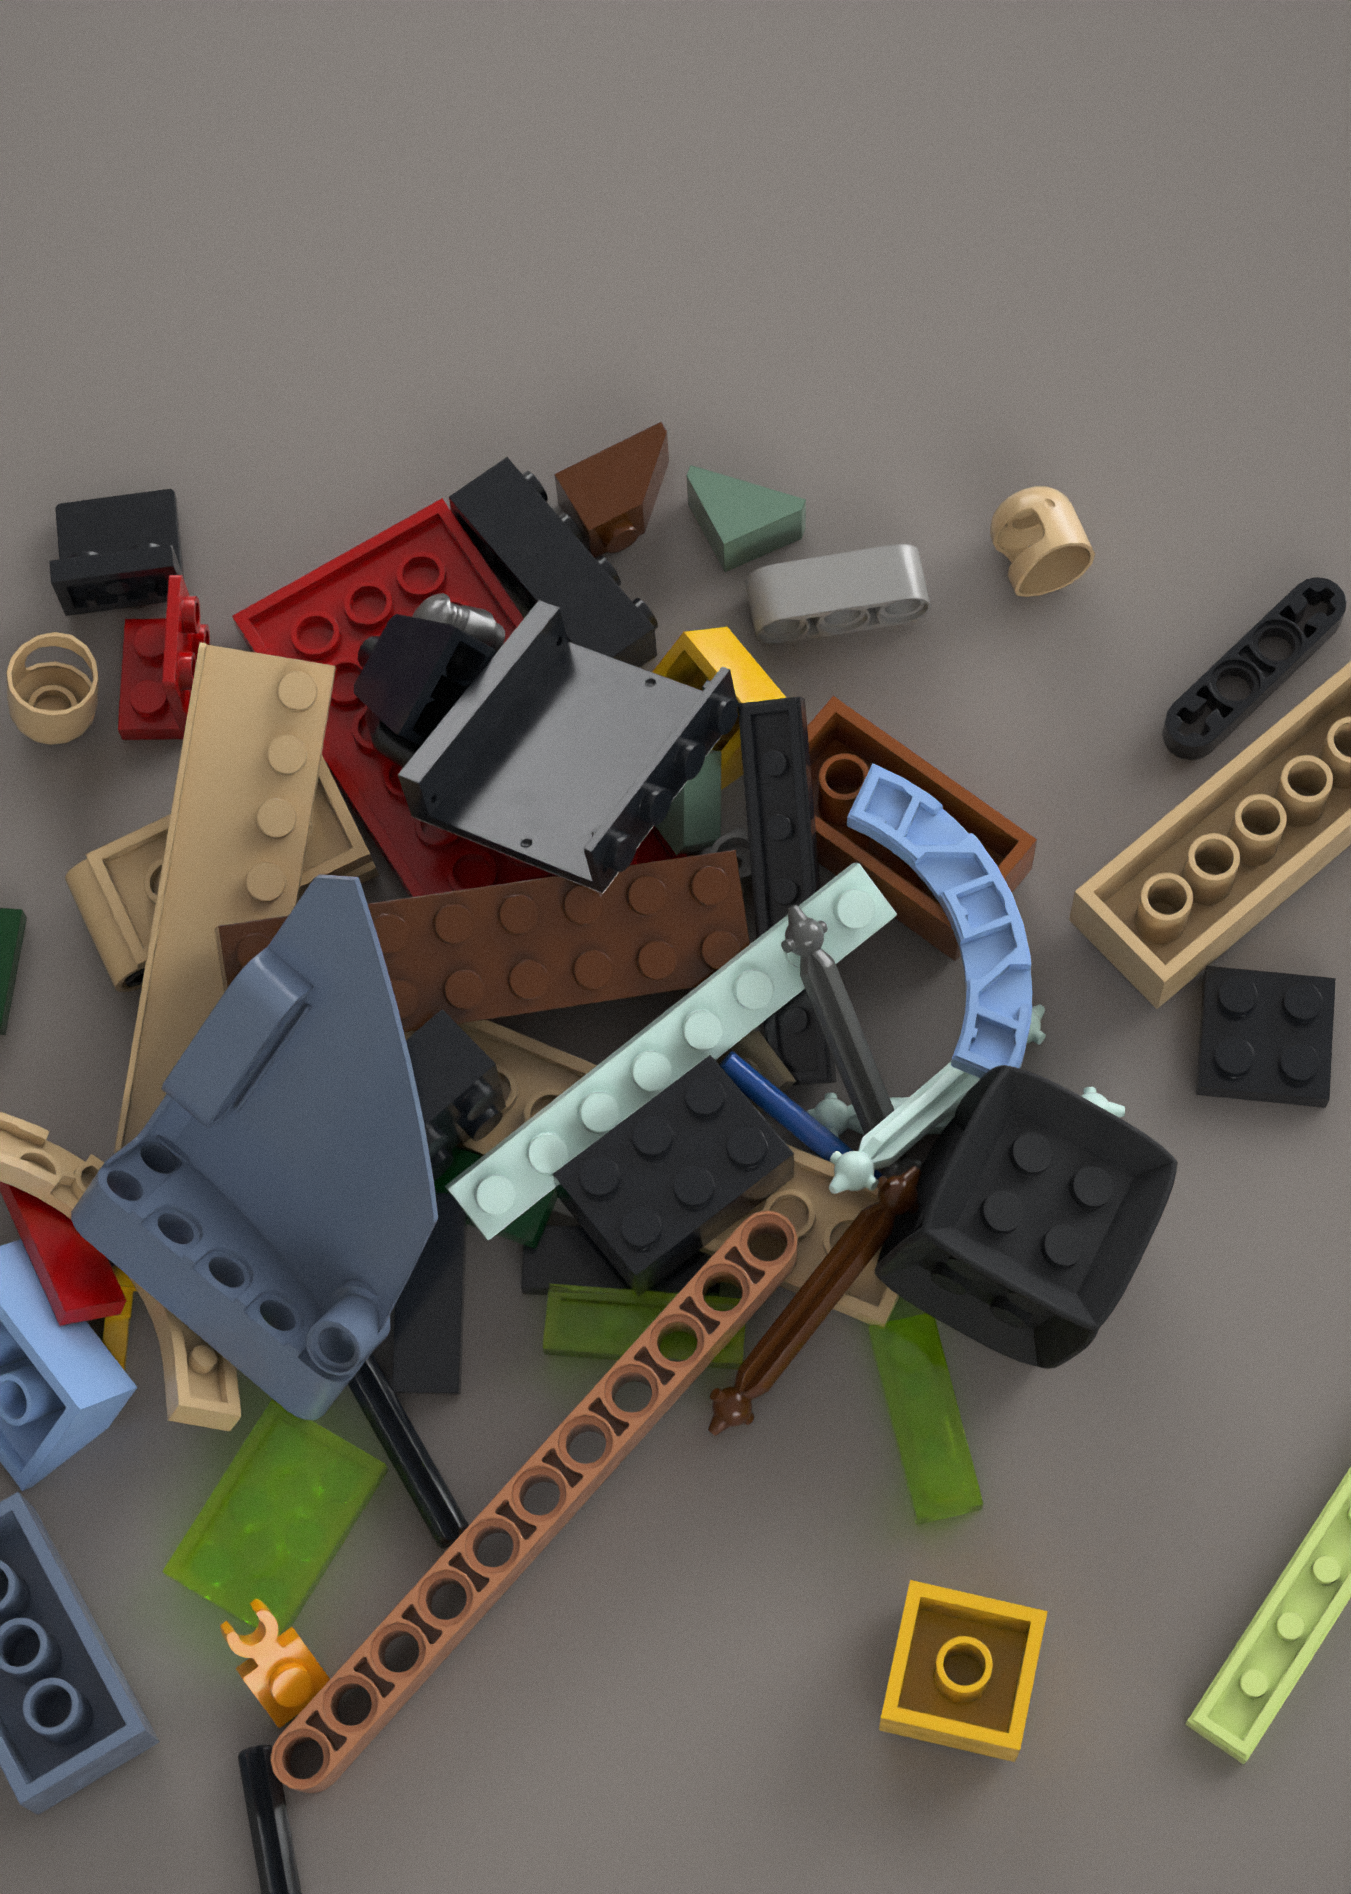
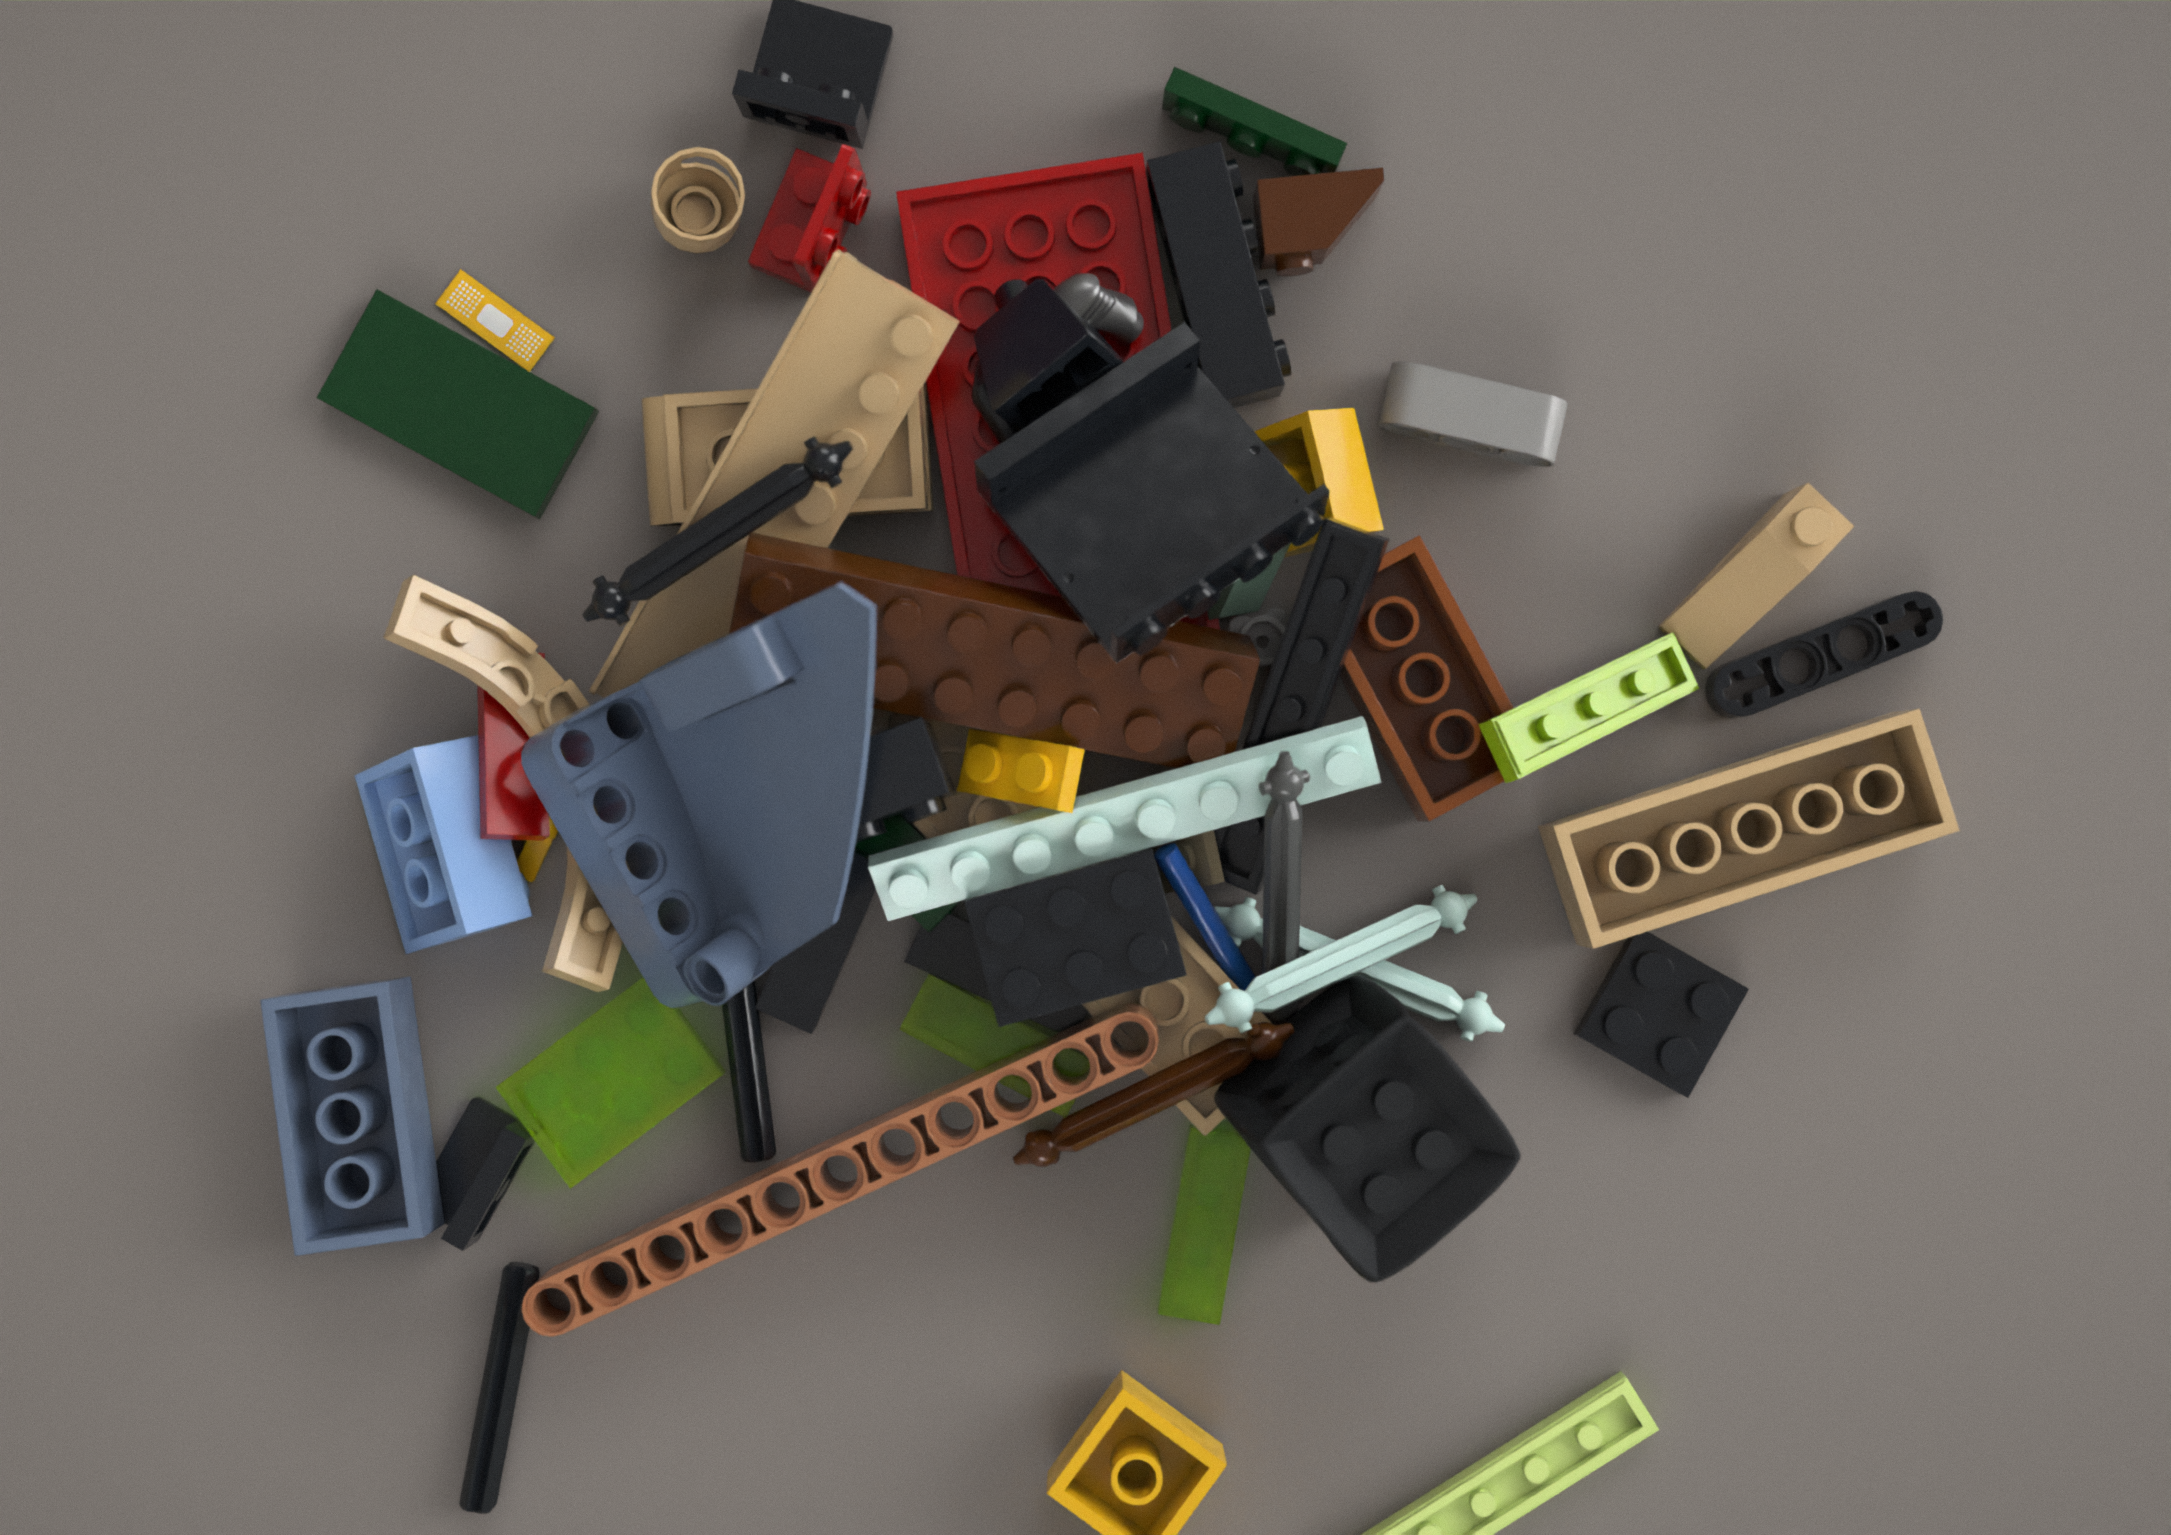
camera: 15 degrees right, 20 degrees up
(176, 1668) = (479, 1169): none -> black panel
(182, 938) = (717, 531): none -> black wheel
(279, 1667) = (560, 1214): light orange plate -> none
(527, 440) = (1249, 125): none -> dark green plate
(556, 1045) = (1021, 770): none -> yellow plate
(743, 517) = (1416, 295): sand green slope -> none
(976, 905) = (1456, 816): light blue tile -> none
(1056, 539) = (1706, 444): tan helmet -> none
(1058, 783) = (1588, 707): none -> tile
(1157, 623) = (1757, 573): none -> tan slope

